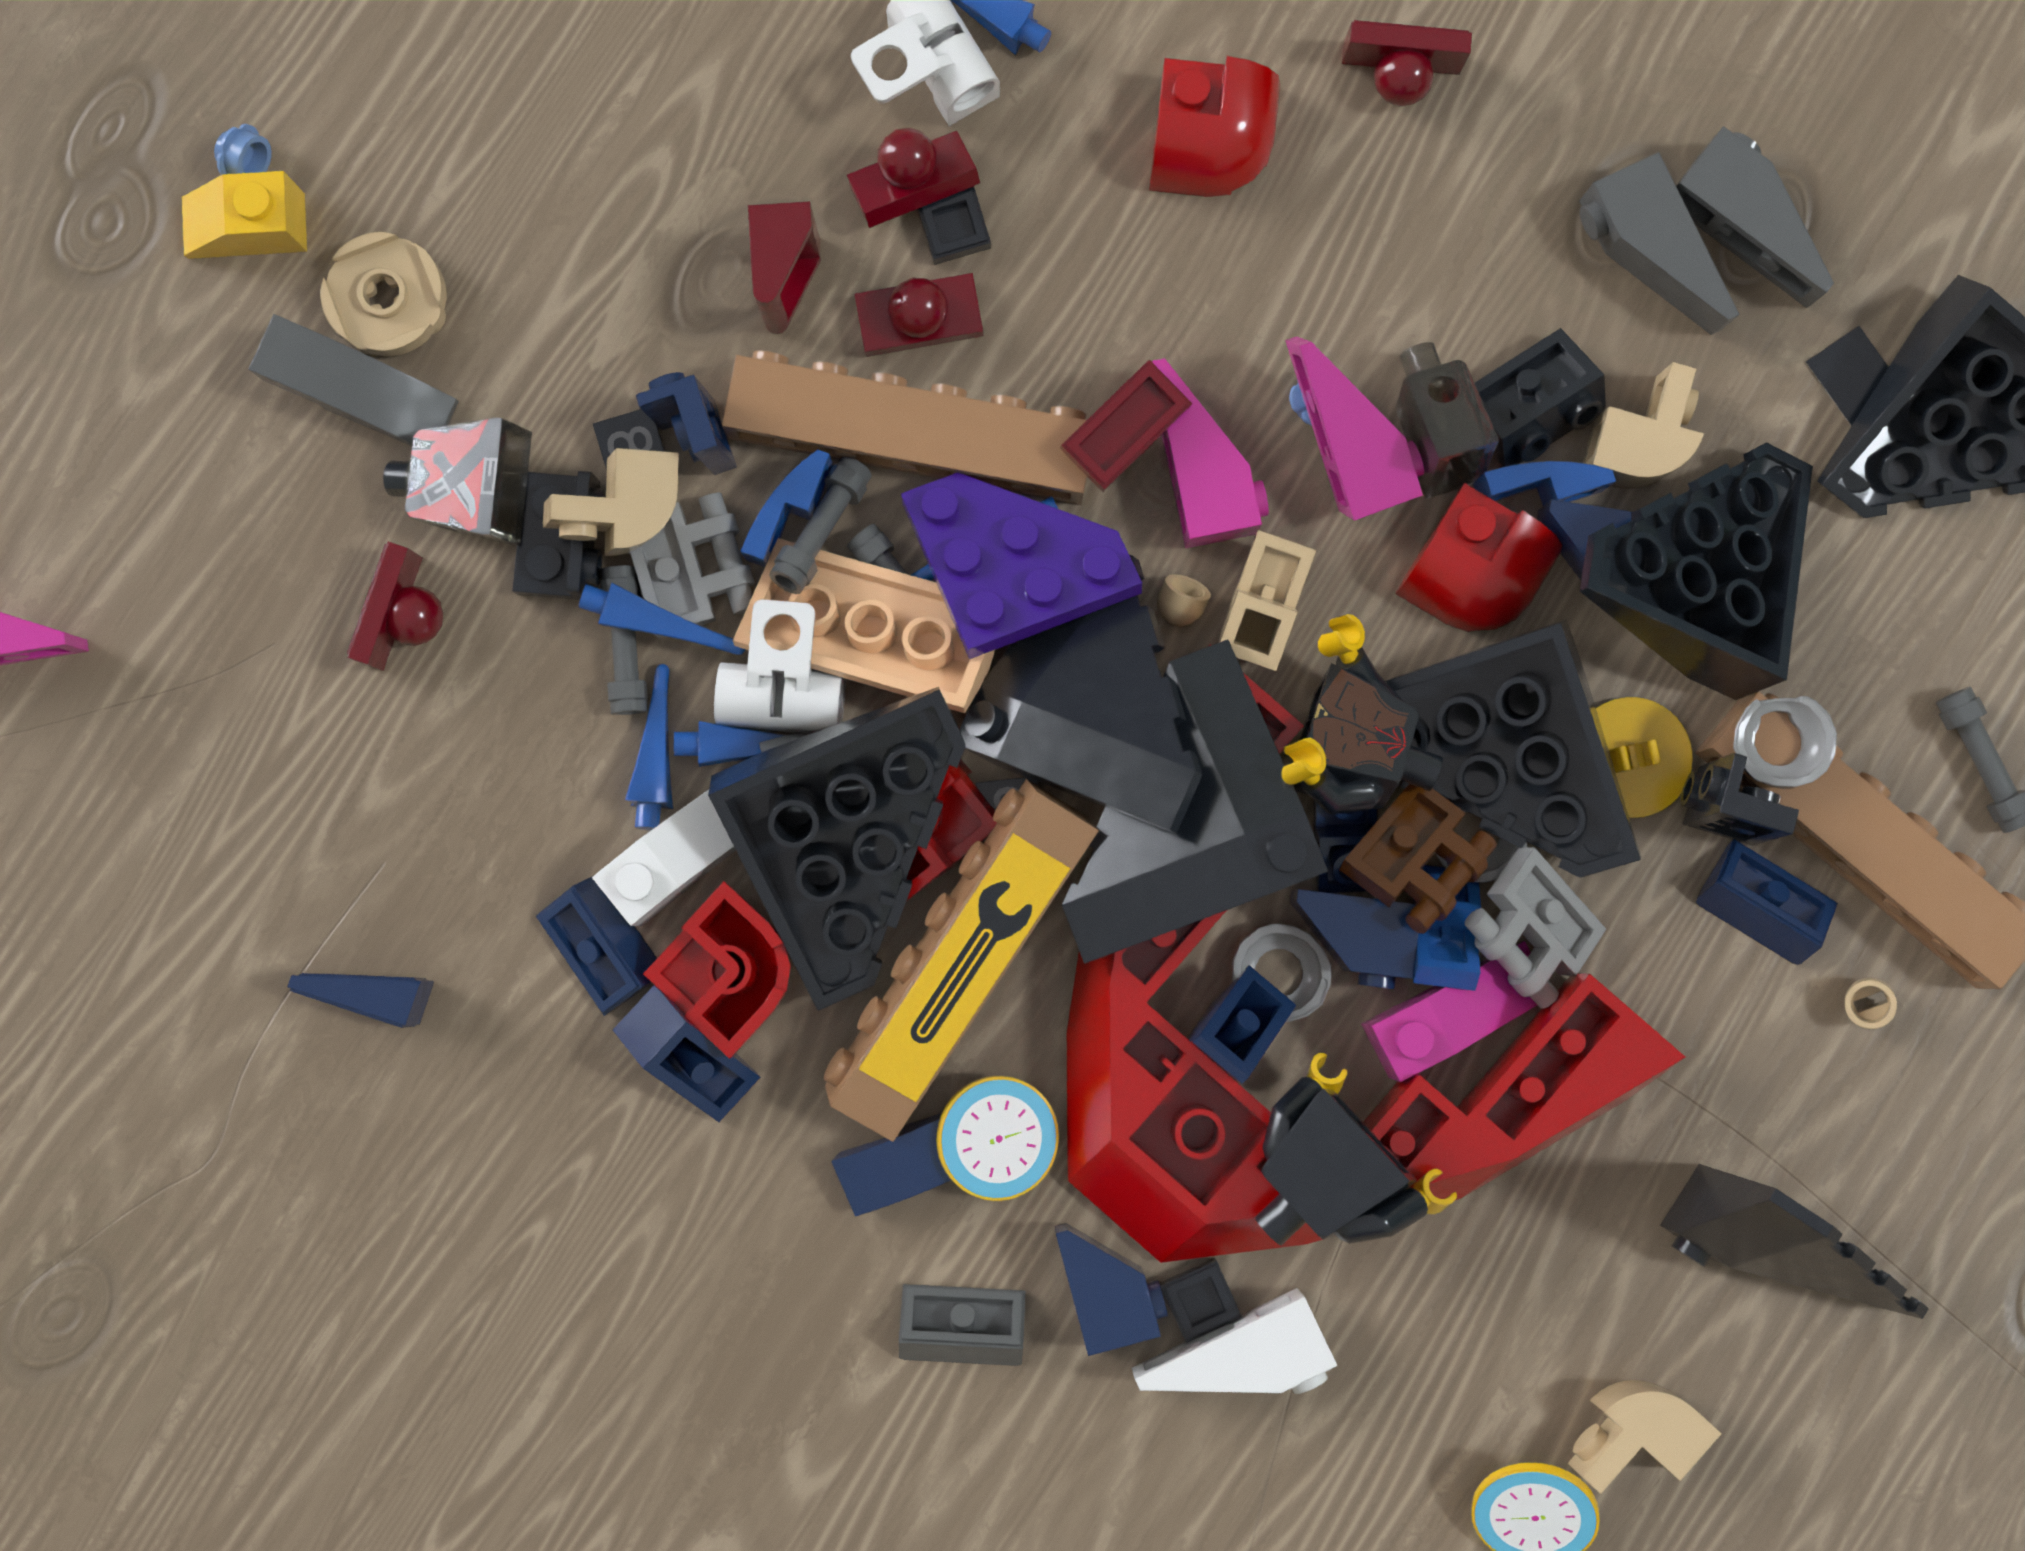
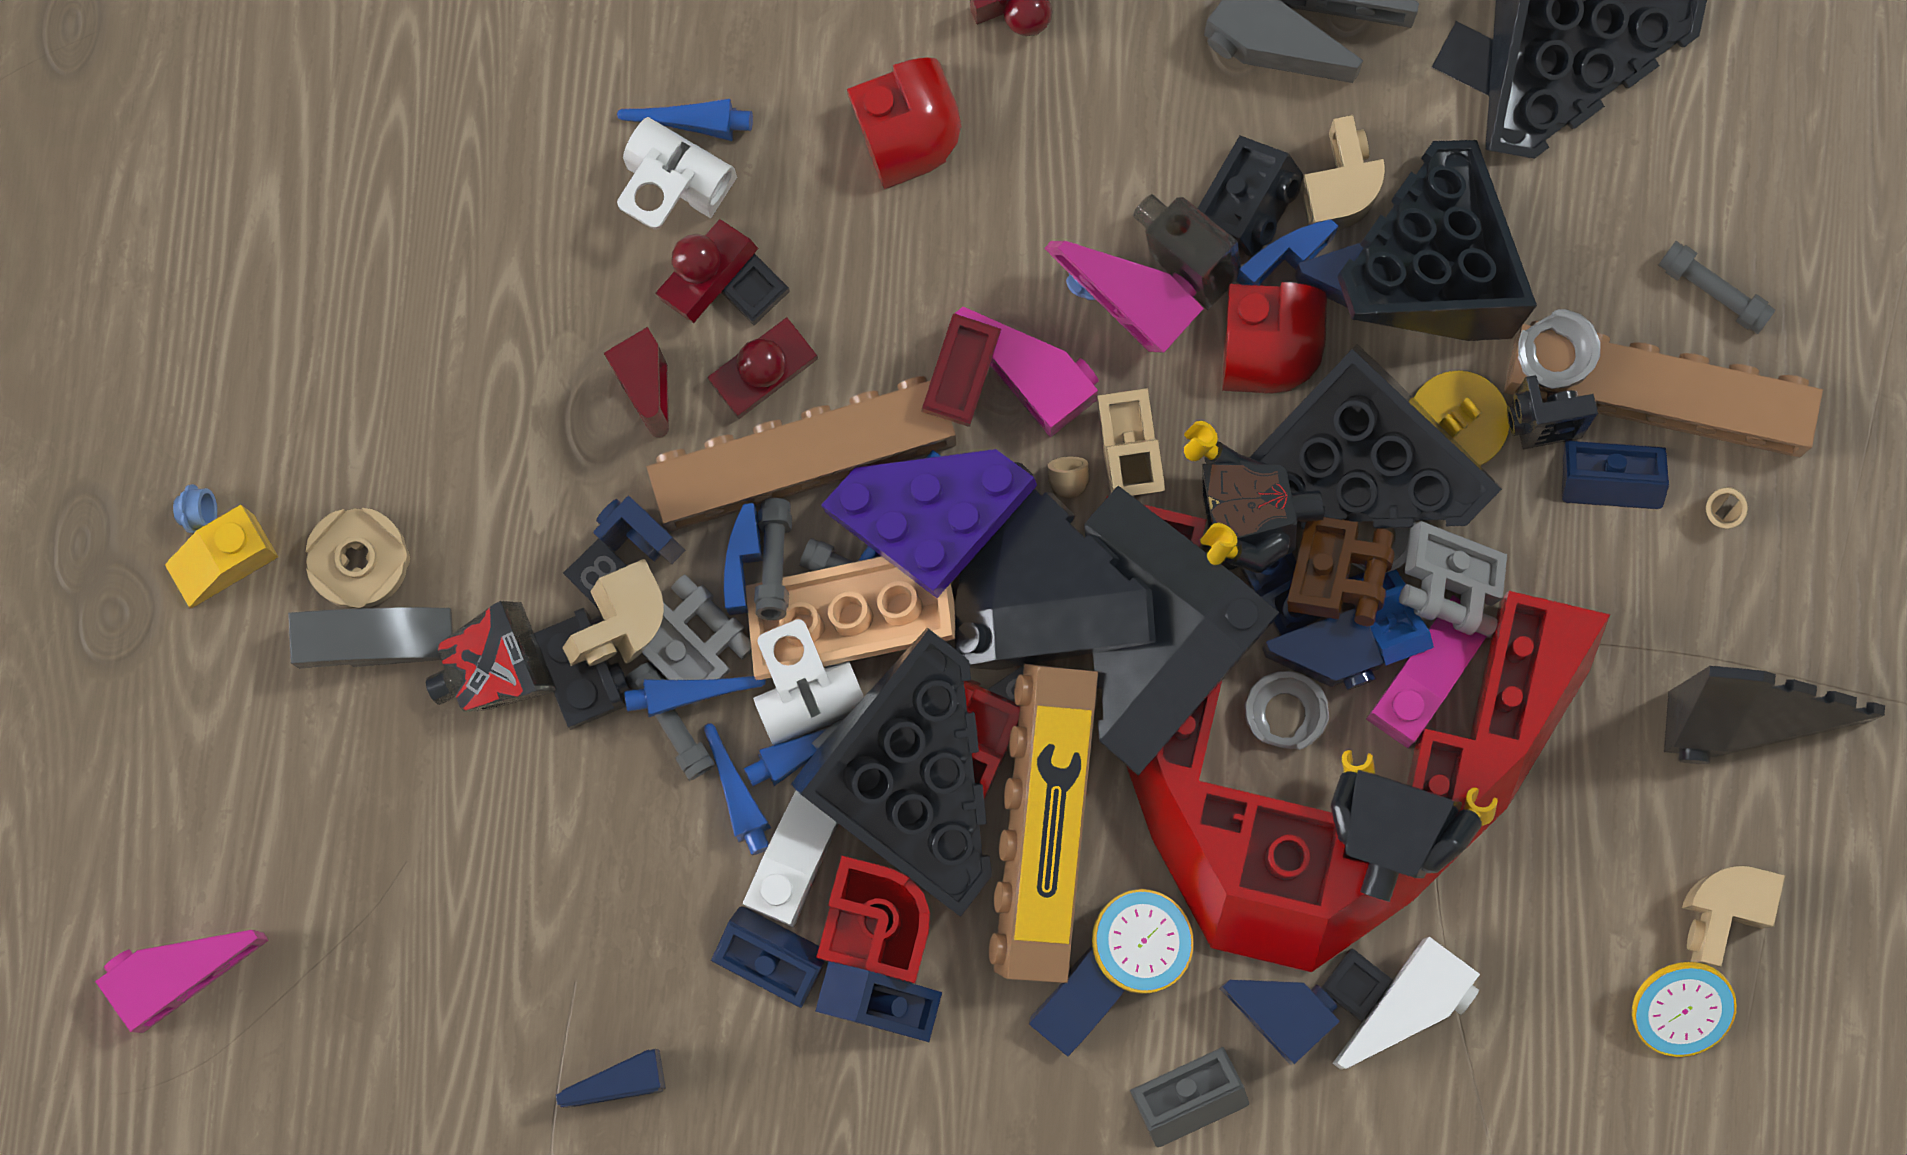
camera: 20 degrees left, 5 degrees down
(394, 609) = (489, 786): dark red tile -> none
(1242, 1024) = (1277, 760): dark blue slope -> none

